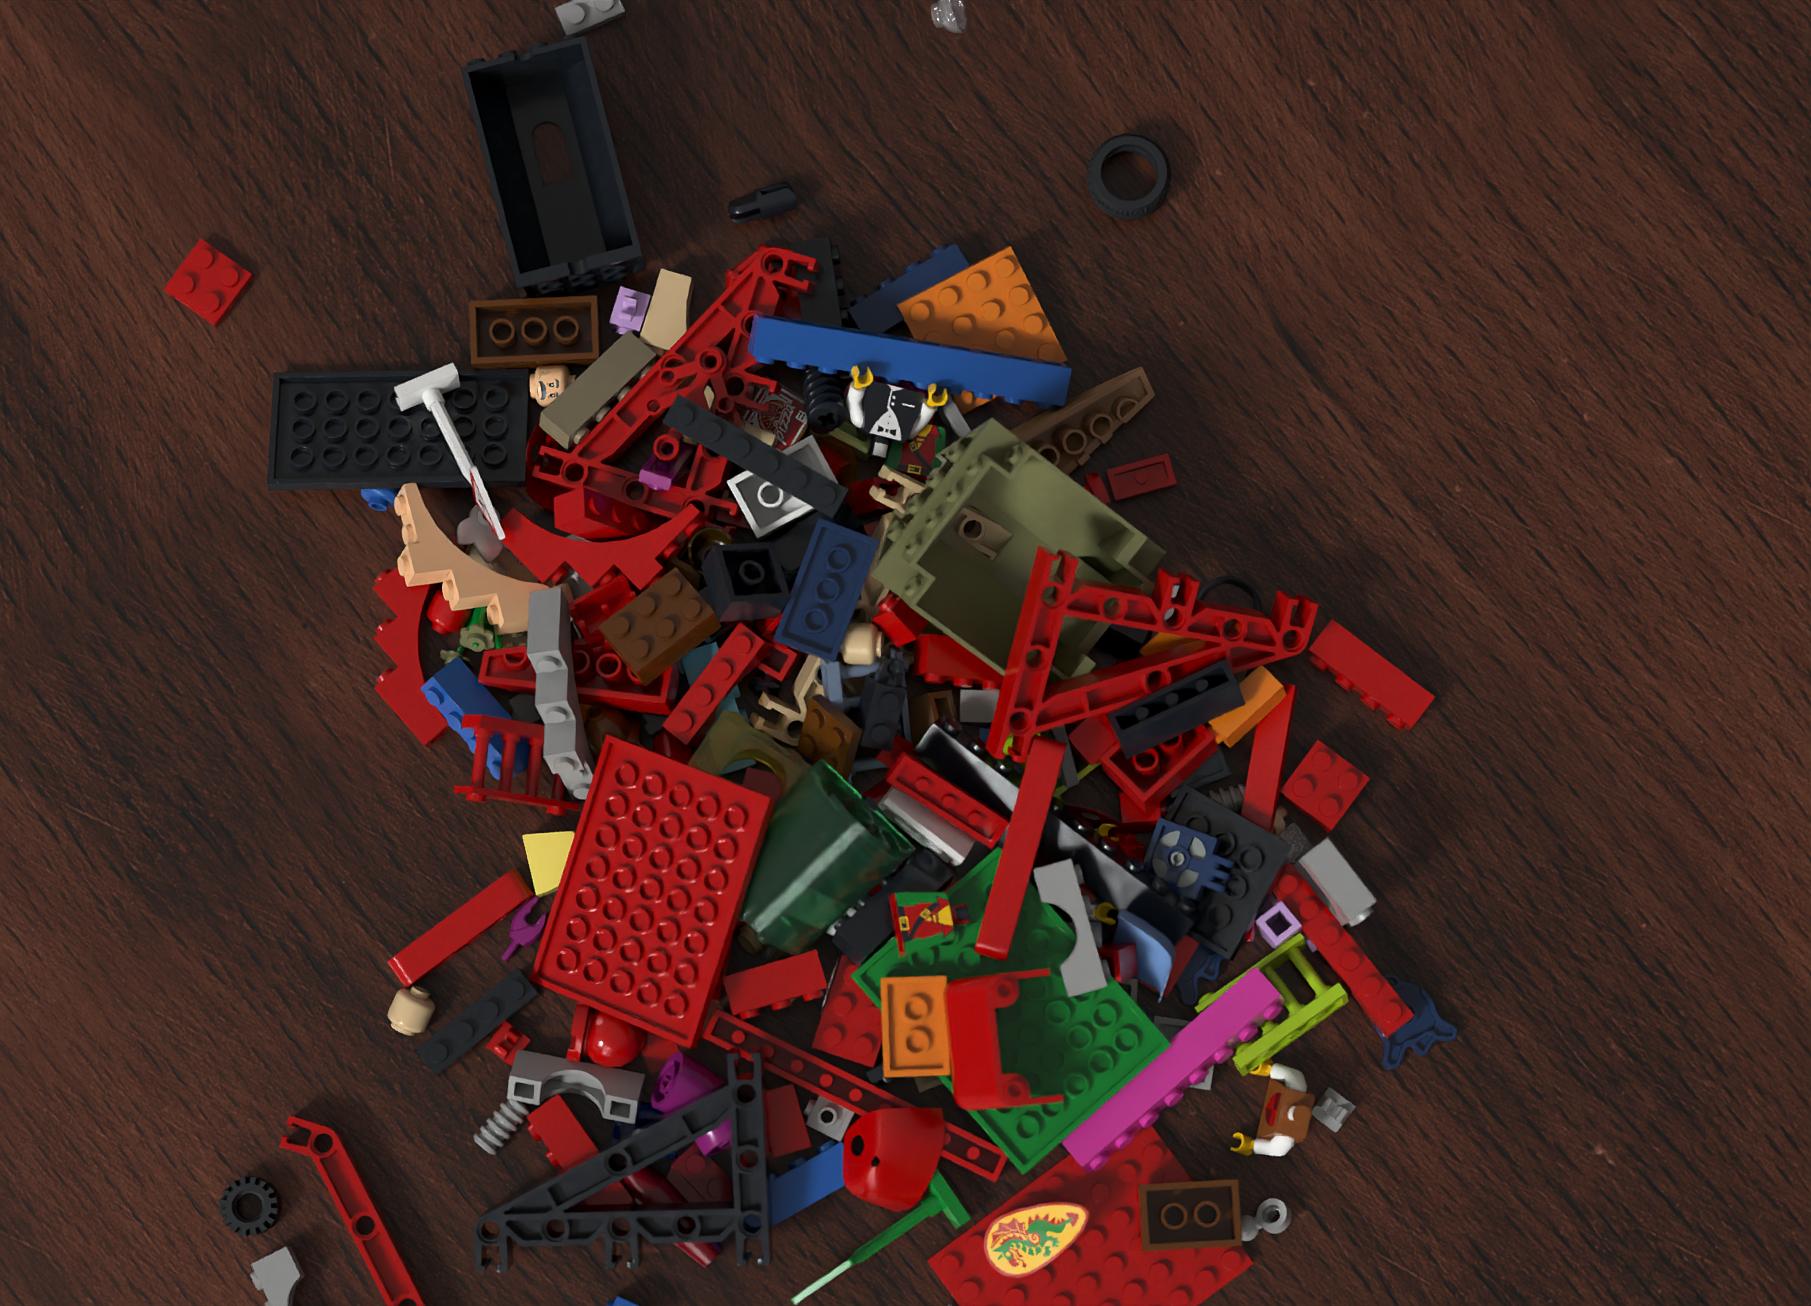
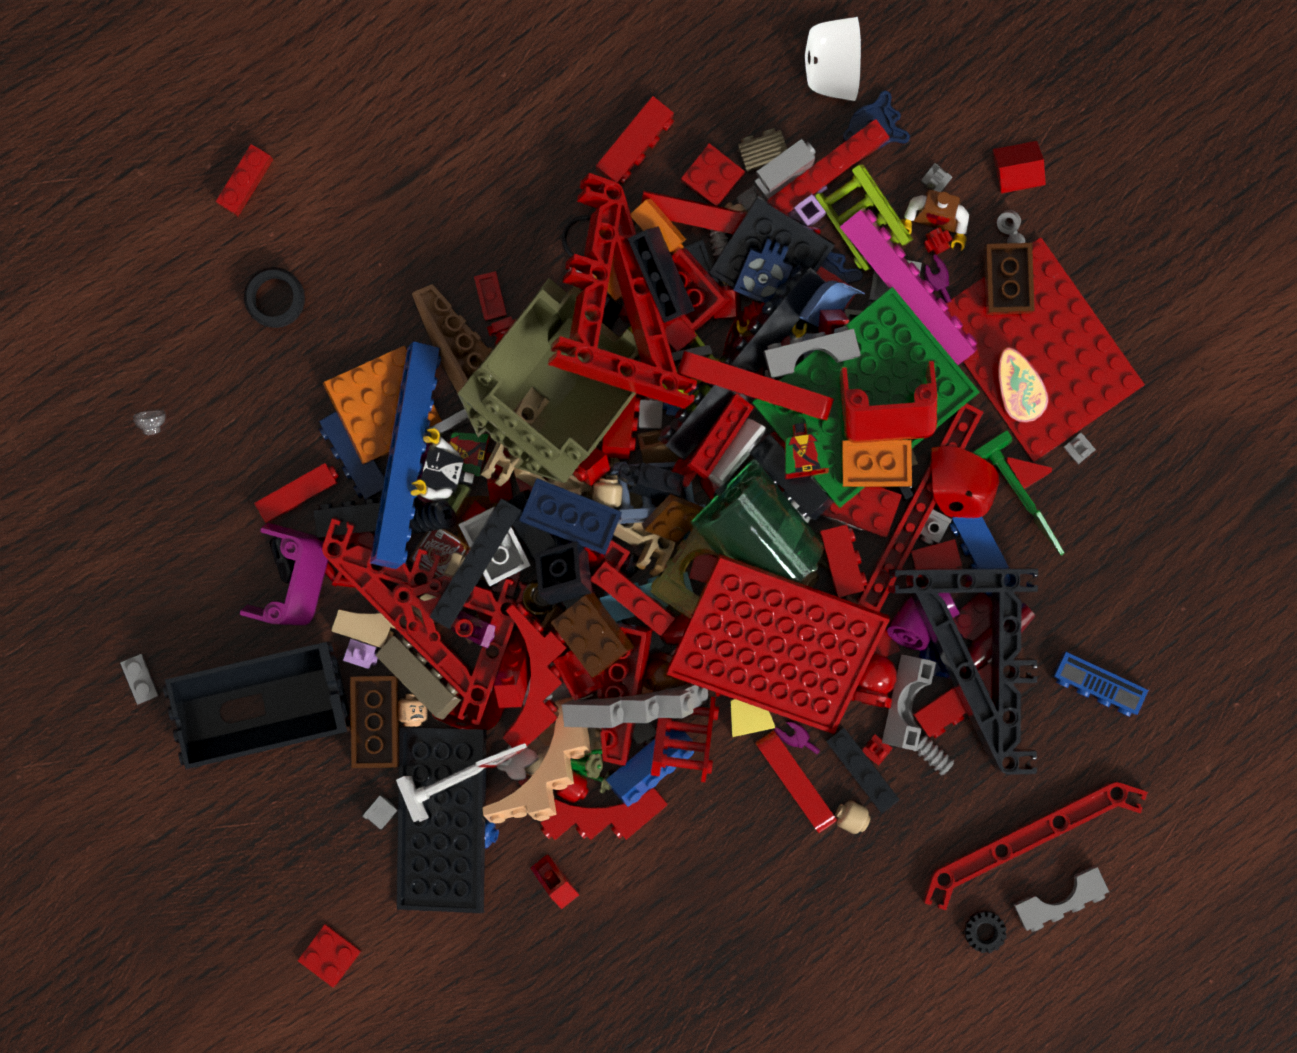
camera: 85 degrees left, 5 degrees up
(314, 591) = (554, 881): none -> red slope
(410, 346) = (380, 812): none -> light grey panel
(731, 229) = (305, 579): none -> magenta windscreen
(855, 217) = (297, 492): none -> red brick
(911, 1249) = (1027, 472): none -> red slope
(1185, 1119) = (940, 280): none -> magenta hand
(1242, 1113) = (938, 241): none -> red gear
(1292, 130) = (244, 180): none -> red brick
(1354, 1230) = (1019, 167): none -> red slope
(1364, 854) = (761, 150): none -> dark tan brick
(1503, 964) = (838, 54): none -> white piece

